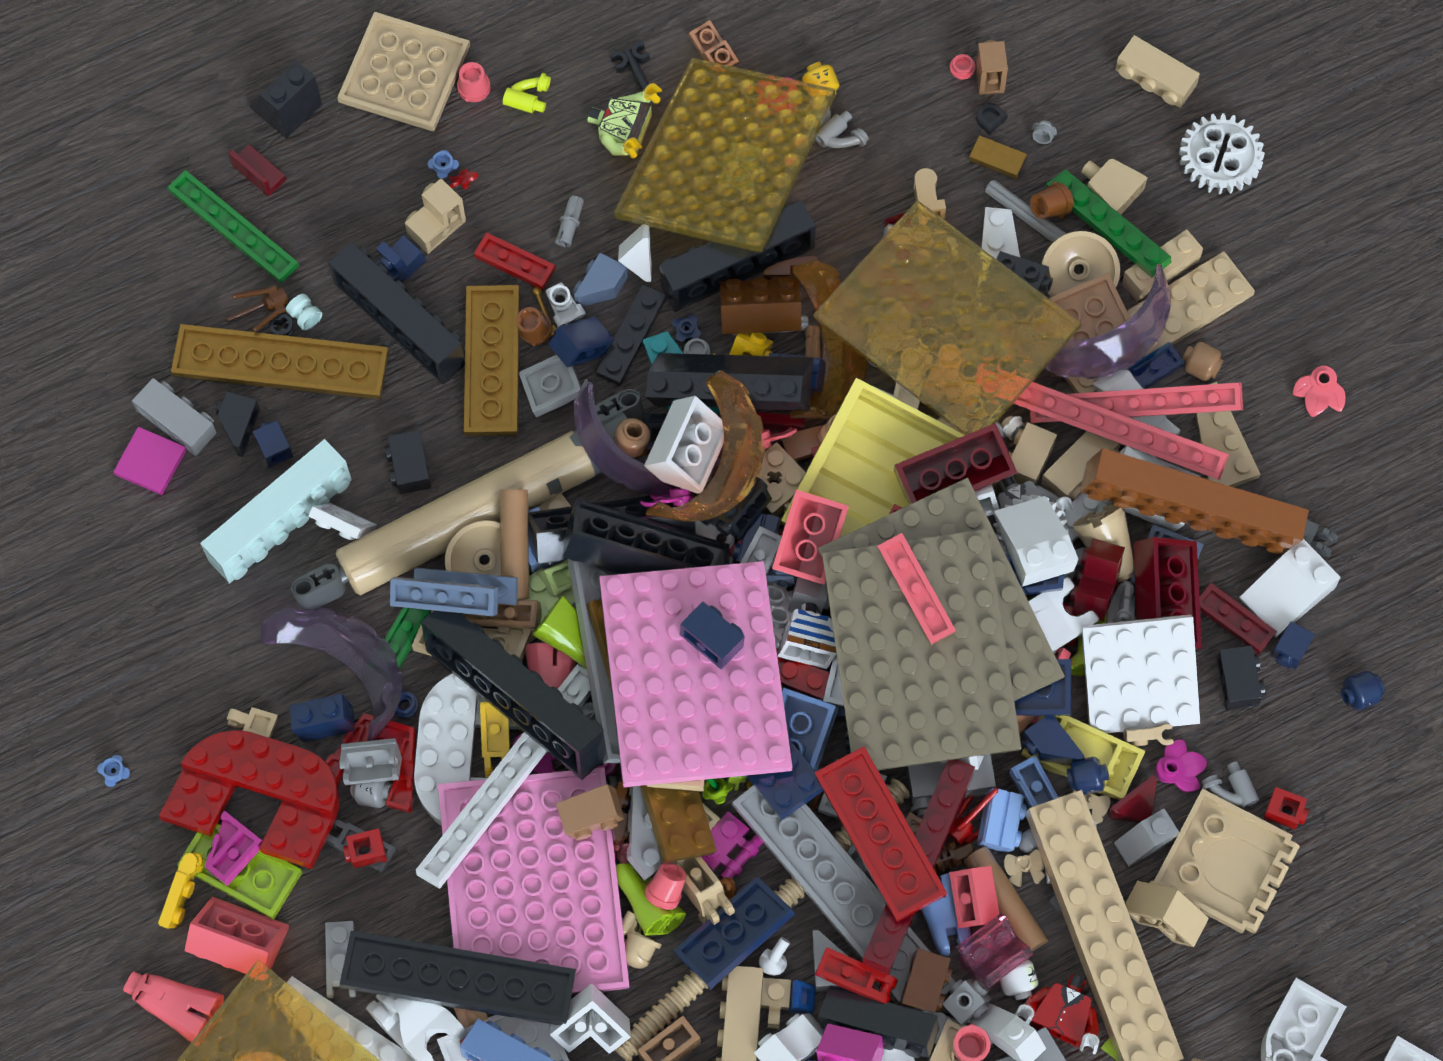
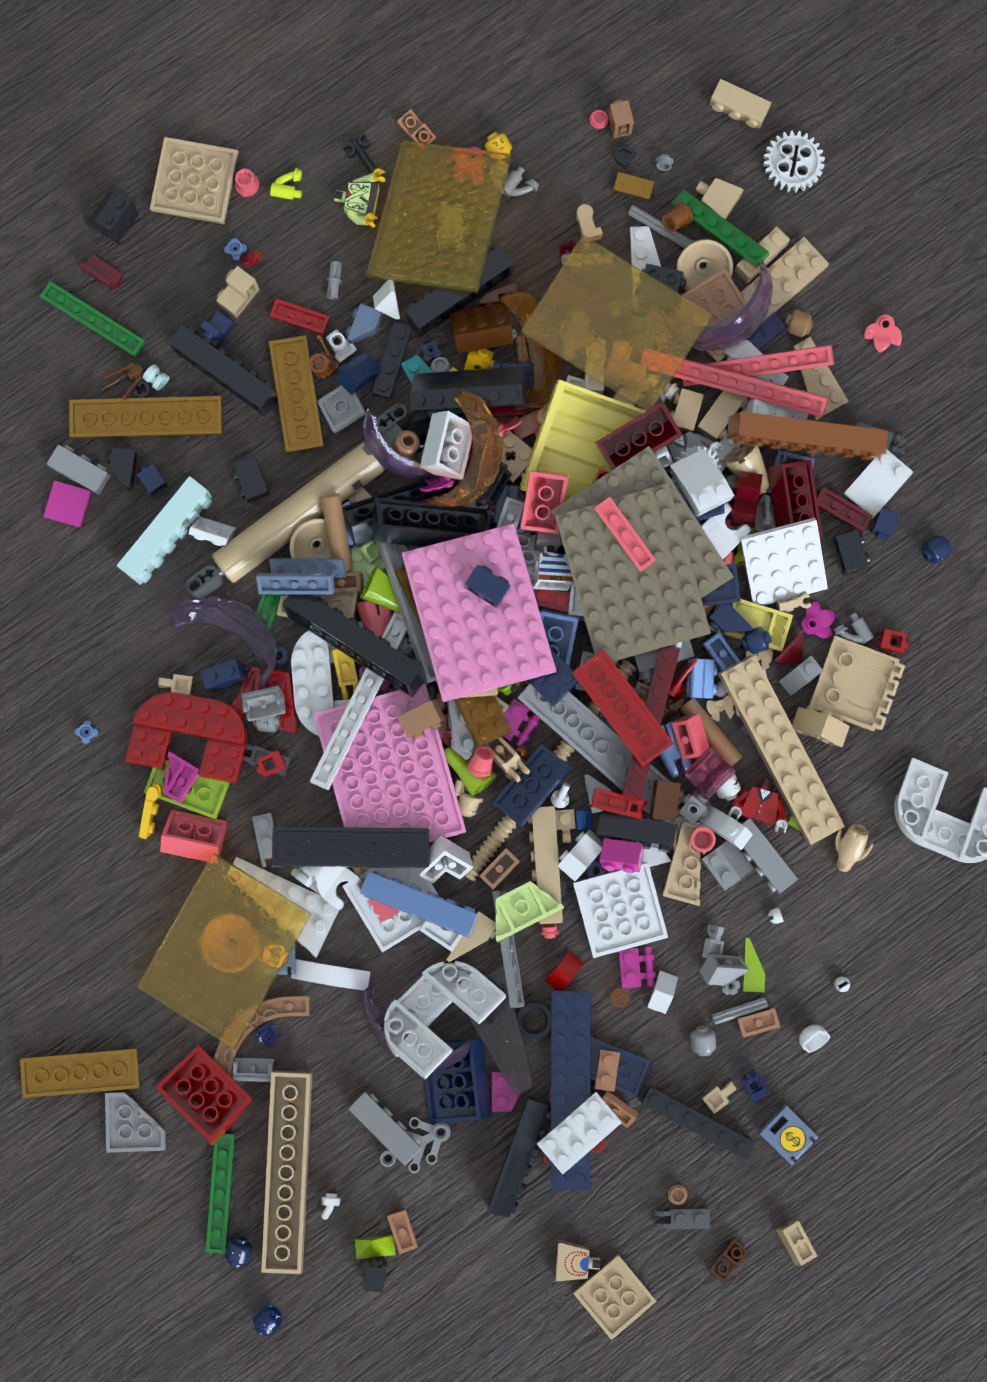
camera: 10 degrees left, 15 degrees up
(175, 1003) = (163, 888): coral piece -> none

